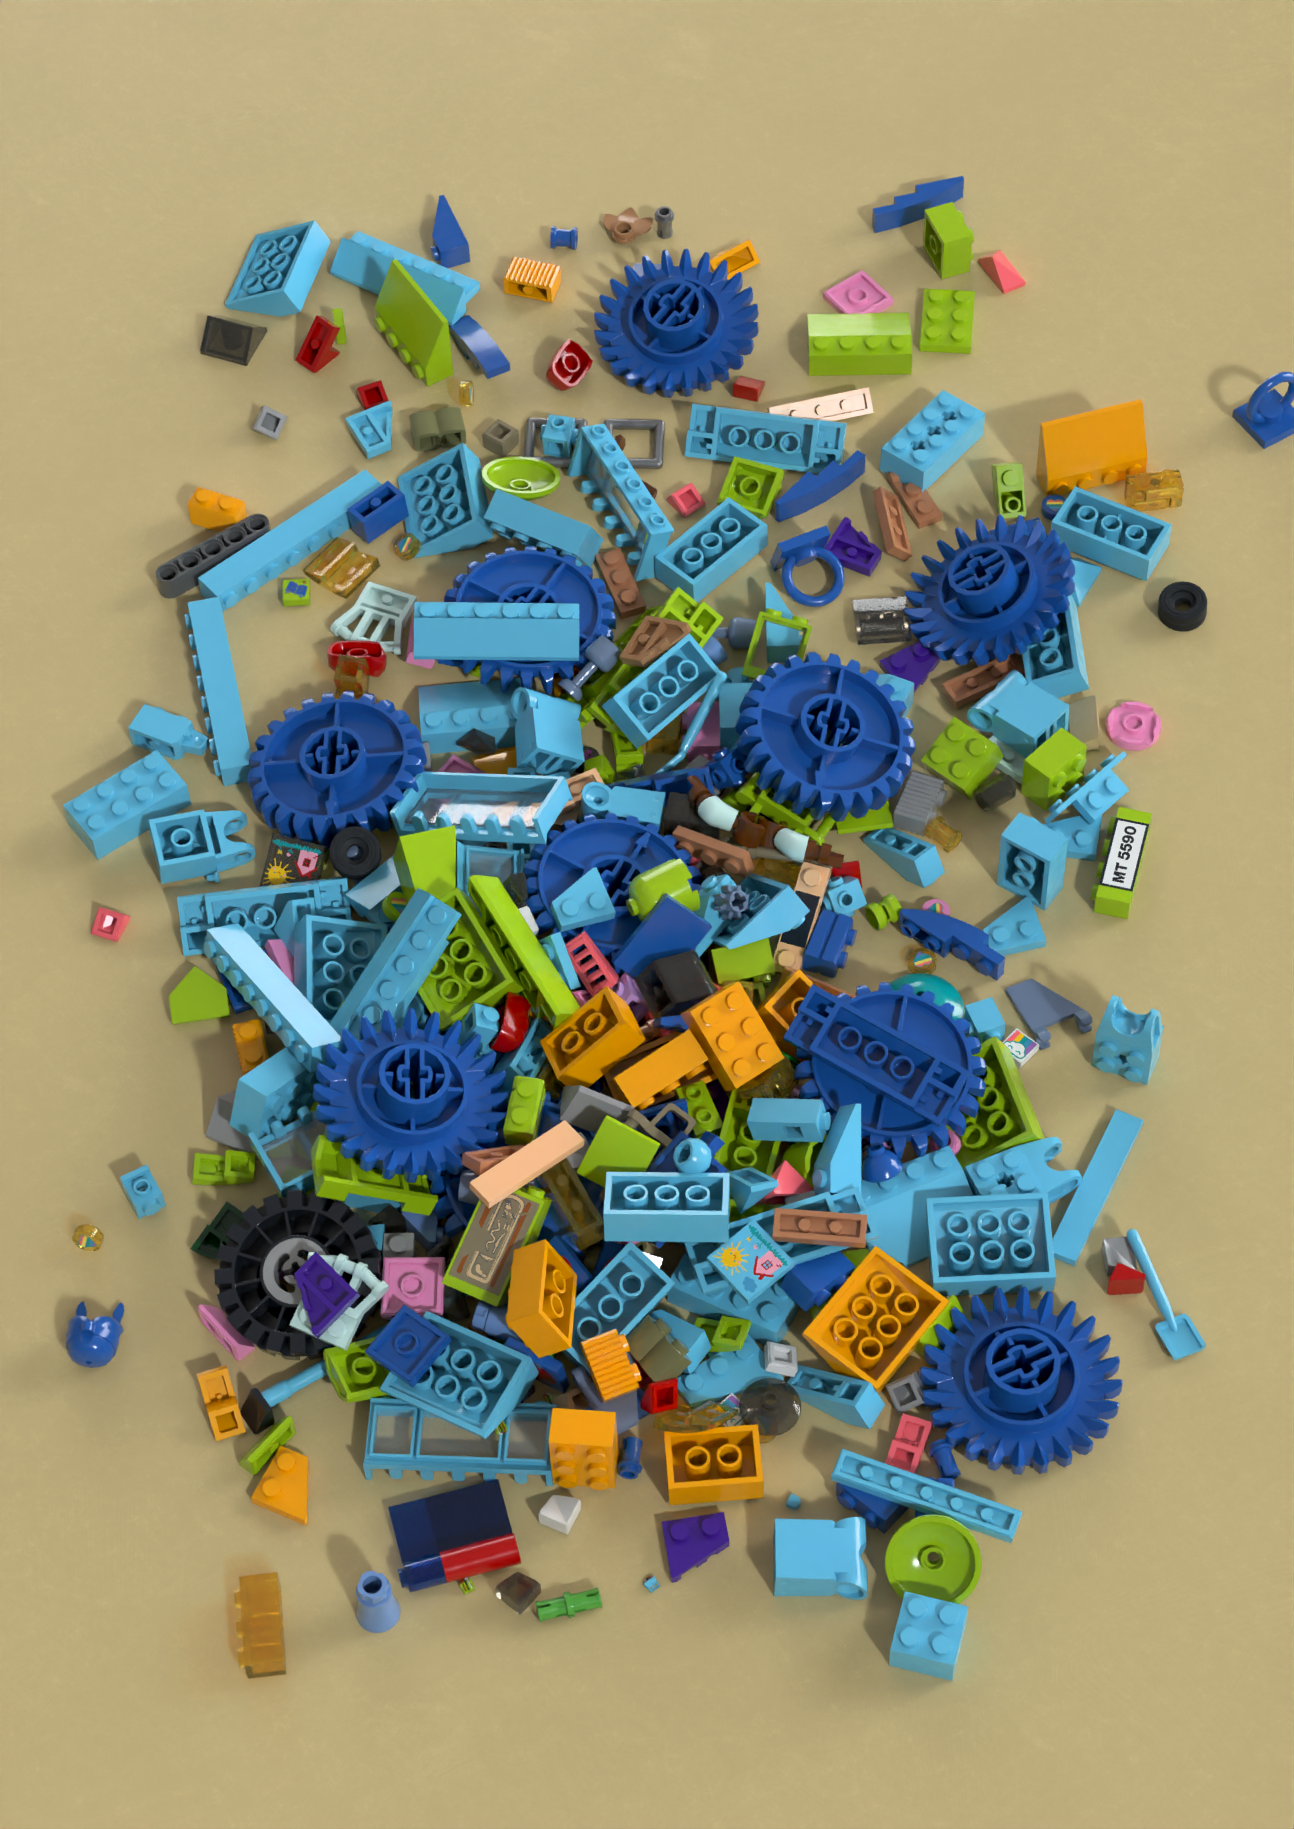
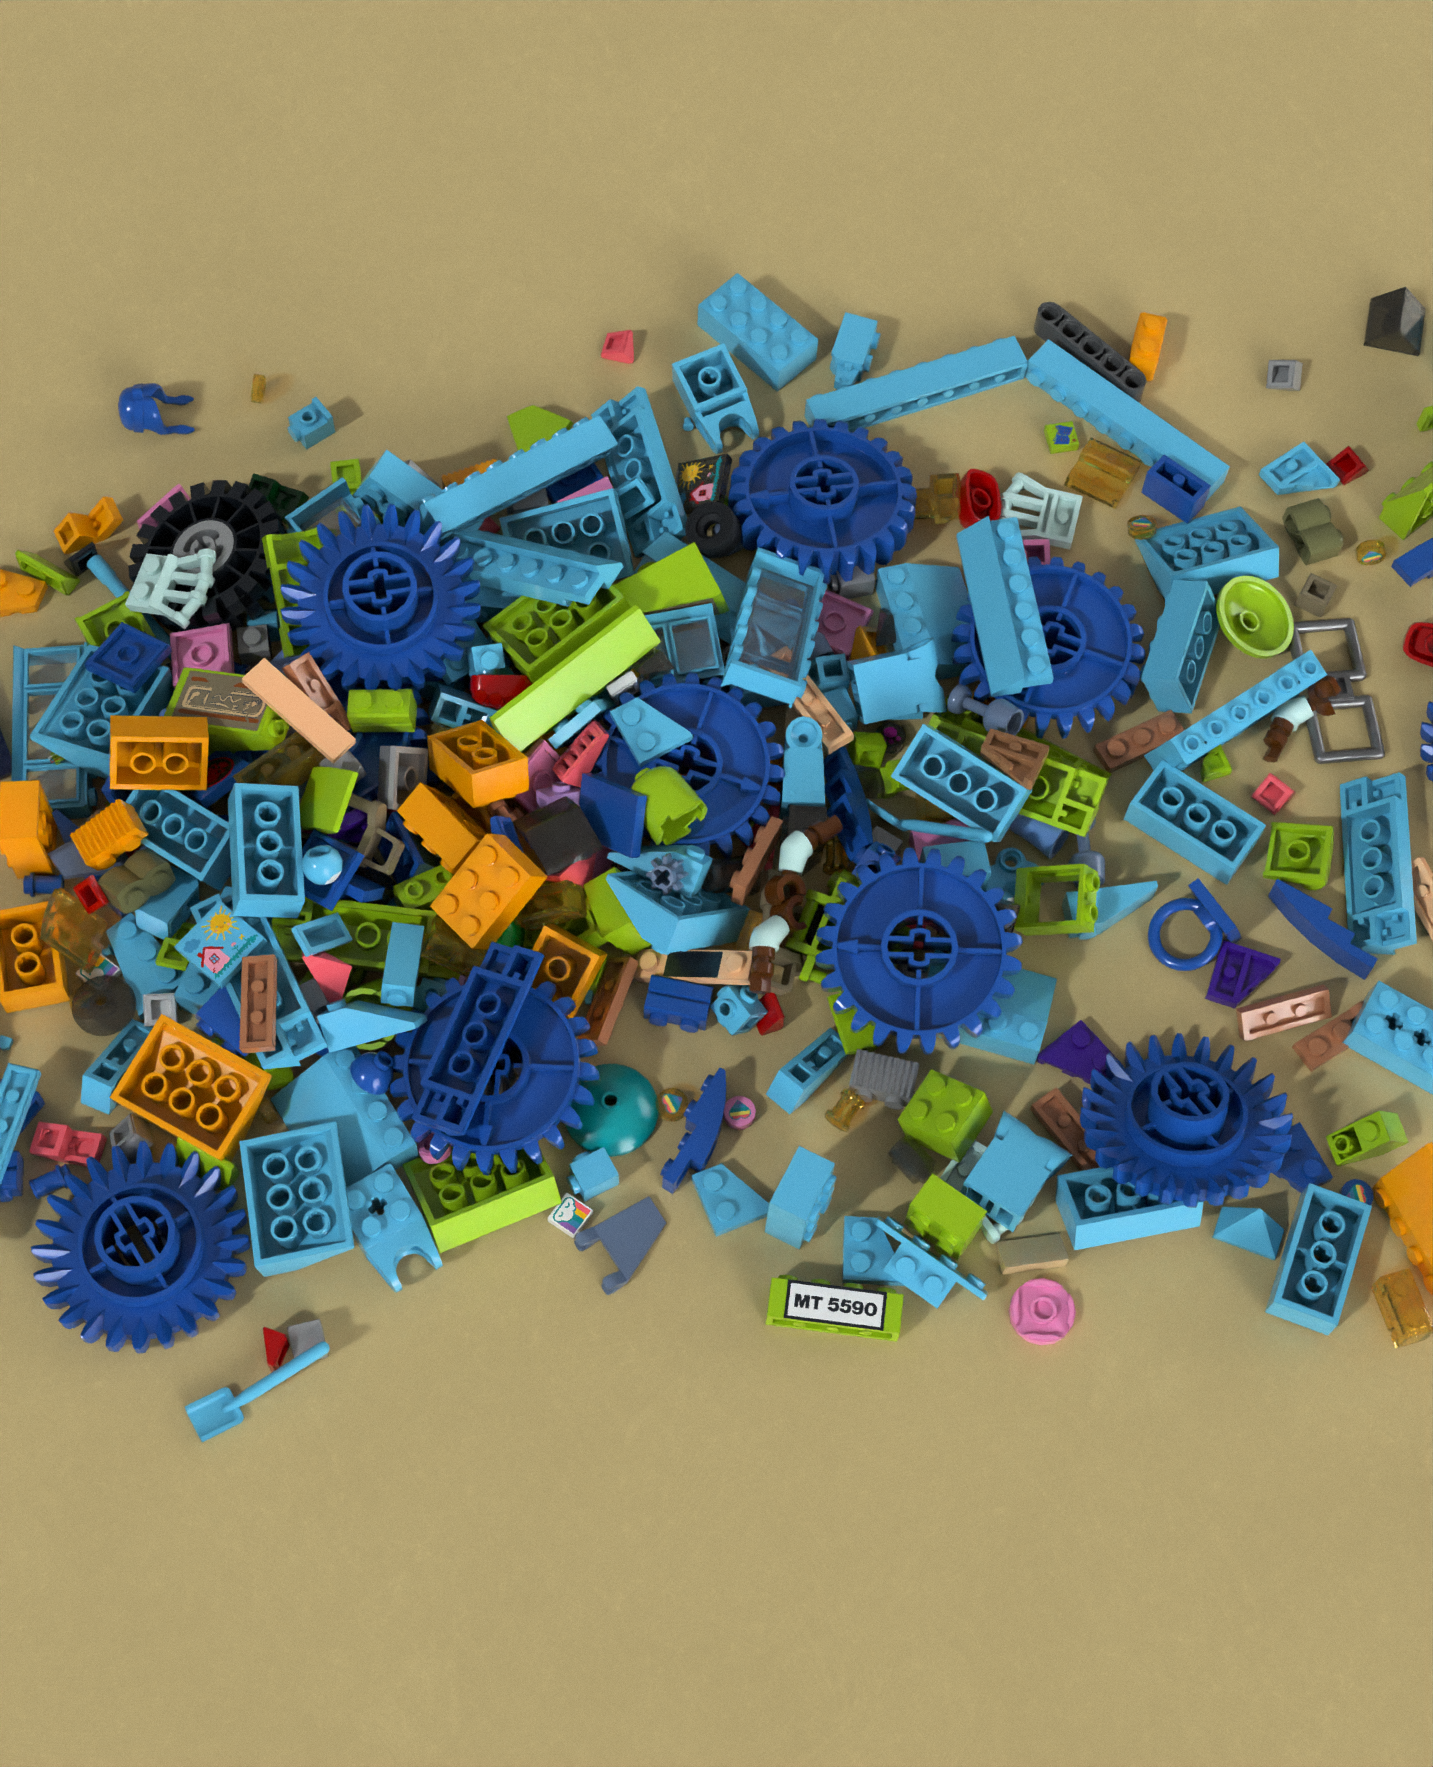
camera: 75 degrees right, 10 degrees up
(317, 346) = (1400, 402): red slope -> none
(323, 1293) = (166, 567): dark purple wing -> none
(558, 430) = (1330, 647): medium azure brick -> none
(881, 620) = (1137, 1013): clear smoke slope -> none
(883, 912) = (728, 1055): lime wheel -> none
(1095, 1186) = (398, 1311): medium azure tile -> none
(1128, 1042) = (569, 1323): medium azure brick -> none
(1182, 593) = (1244, 1343): black tyre -> none

